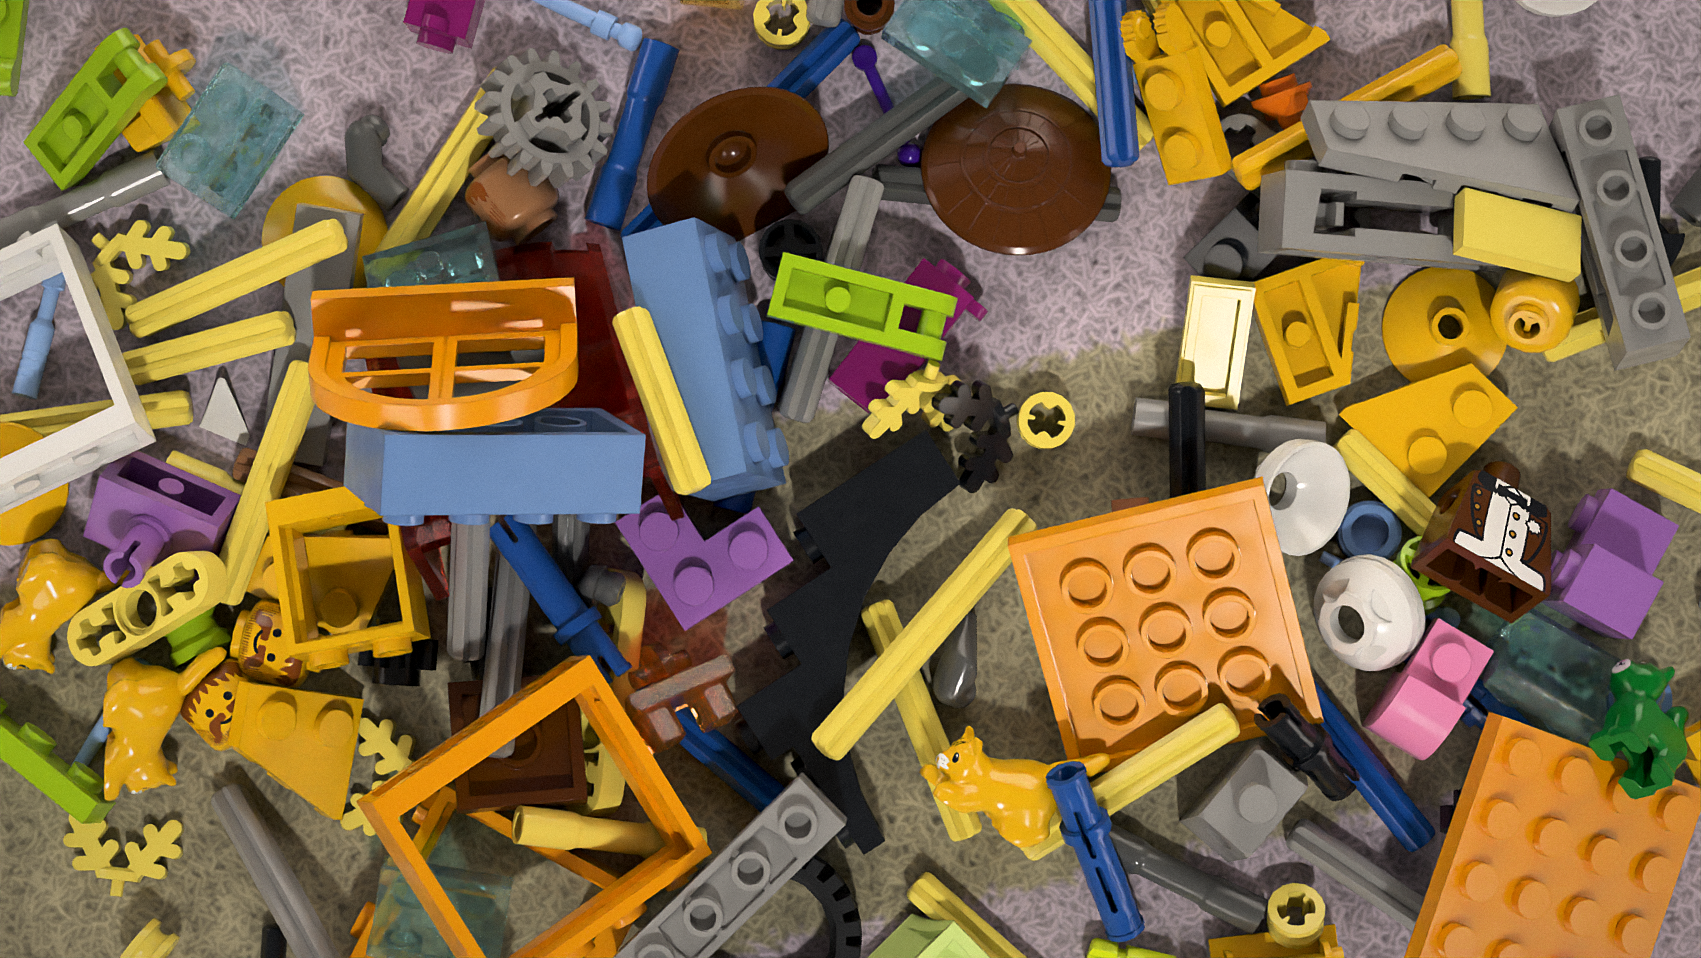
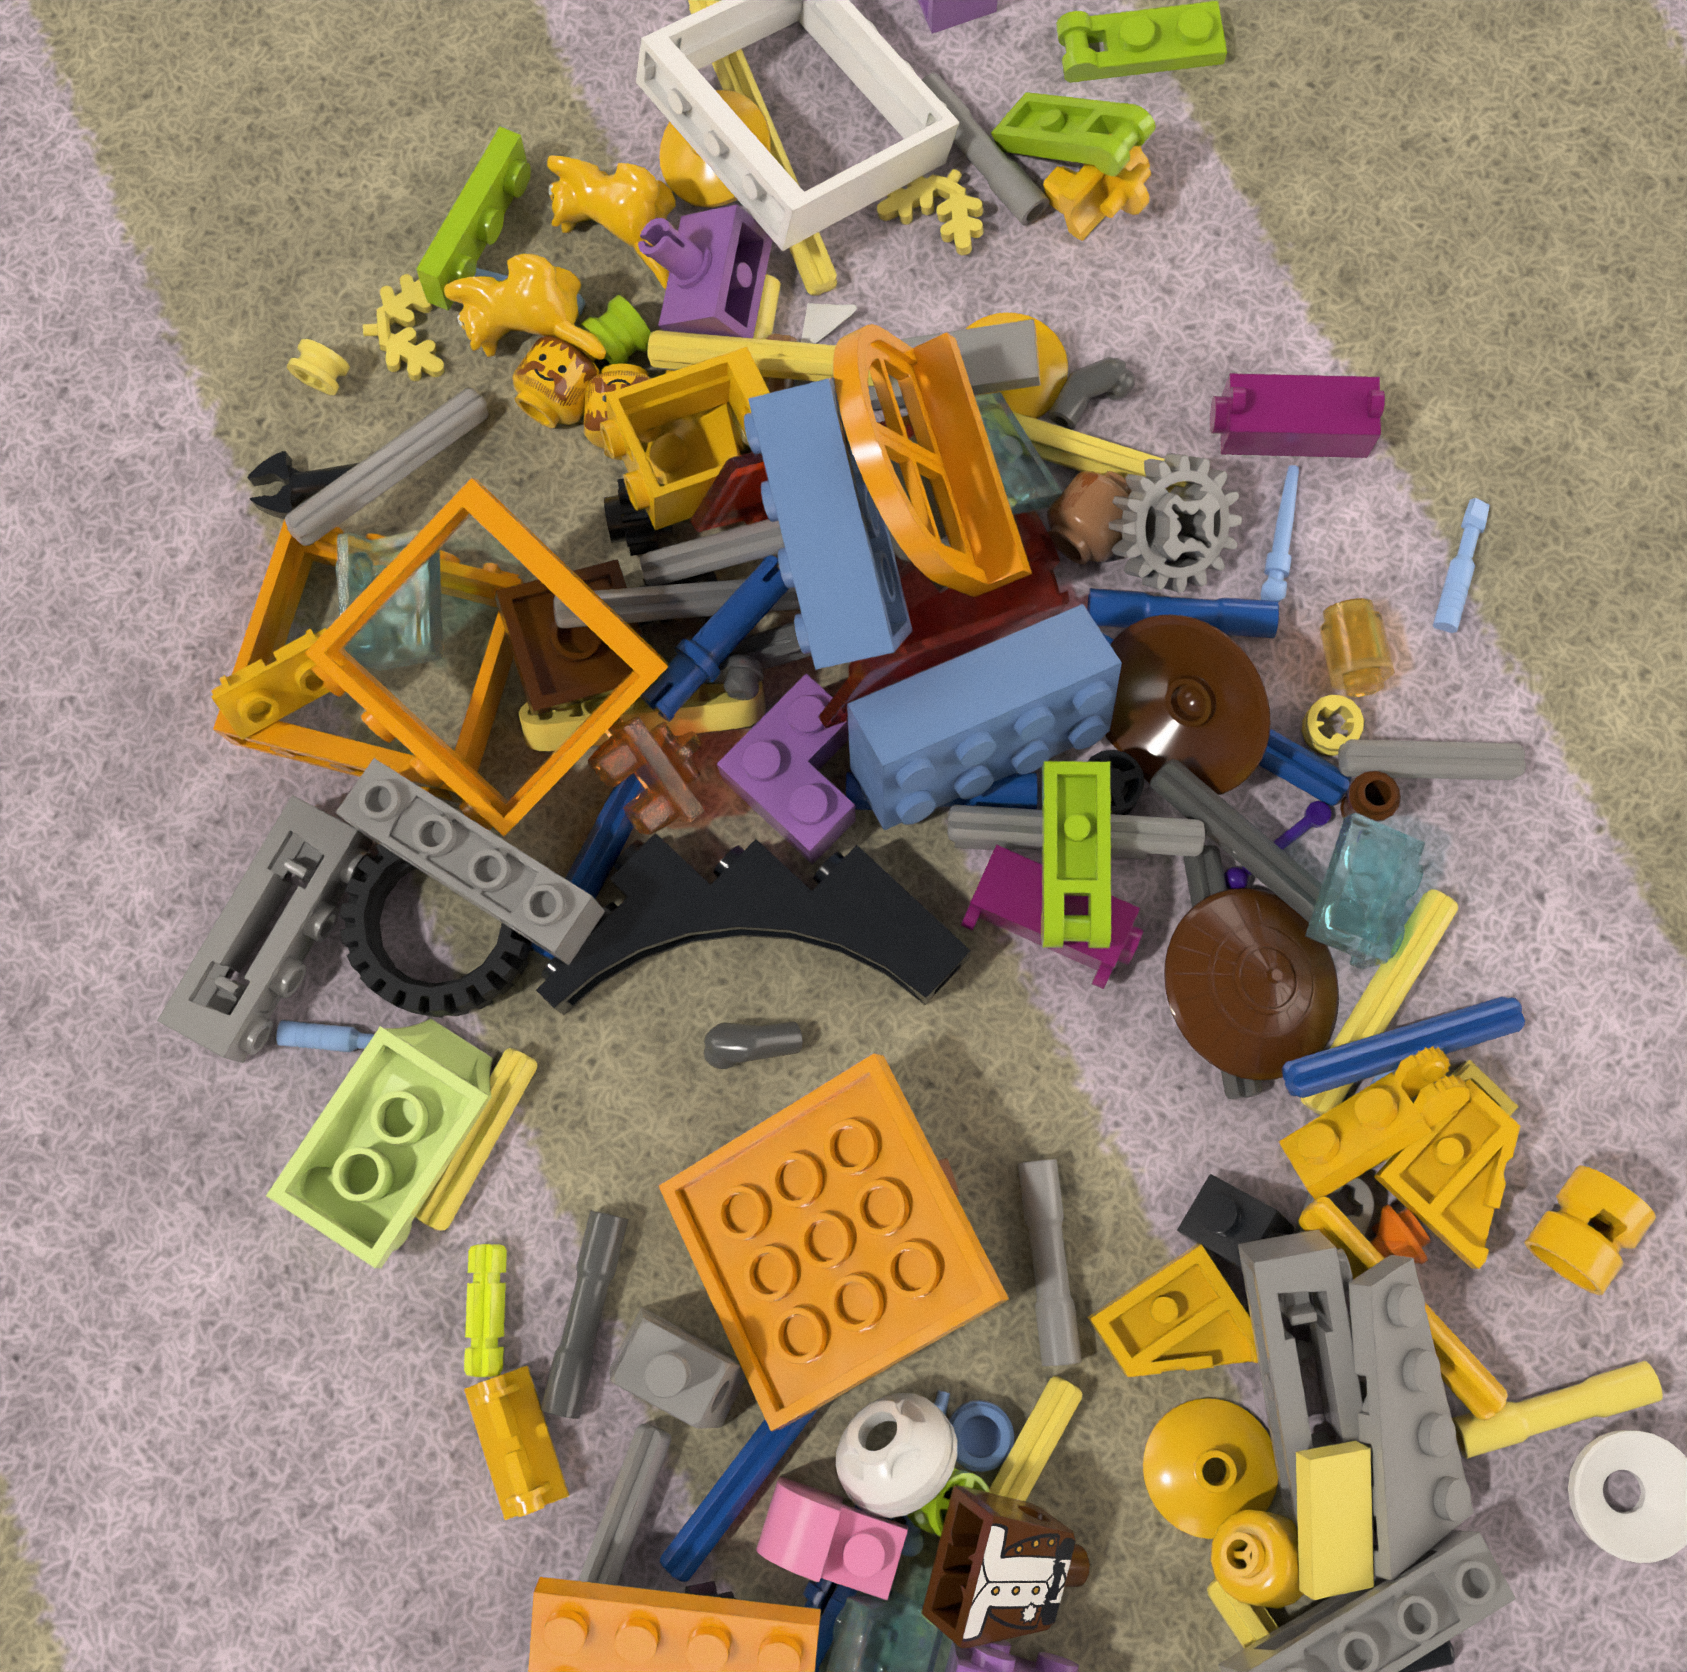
camera: 85 degrees right, 10 degrees down
(38, 341) = (837, 148): light blue piece -> none
(172, 608) = (629, 299): light yellow beam -> none
(210, 347) = (879, 282): light yellow axle -> none
(229, 140) = (1075, 257): clear light blue bracket -> none
(236, 278) = (952, 288): light yellow axle -> none
(299, 739) = (539, 444): yellow wing -> none
(397, 757) = (554, 526): light yellow animal -> none
(570, 830) = (501, 705): light yellow piece -> none
(661, 401) = (931, 670): light yellow axle -> none
(909, 395) = (1003, 959): light yellow animal -> none
(918, 714) = (683, 1022): light yellow axle -> none
(920, 637) = (760, 994): light yellow axle -> none
(974, 411) = (972, 1023): black animal -> none
(1005, 790) = (629, 1125): yellow animal -> none
(1048, 401) = (1030, 1074): light yellow bush -> none
(1087, 830) = (606, 1208): blue pin -> none
(1152, 767) = (667, 1242): light yellow axle -> none
(1186, 438) = (1030, 1217): black axle -> none
(1216, 337) = (1133, 1224): light yellow tile -> none
(1298, 896) = (563, 1472): light yellow bush -> none
(1306, 747) = (740, 1418): black pin -> none
(1313, 497) = (1006, 1368): white piece -> none
(1432, 423) = (1110, 1477): yellow wing -> none

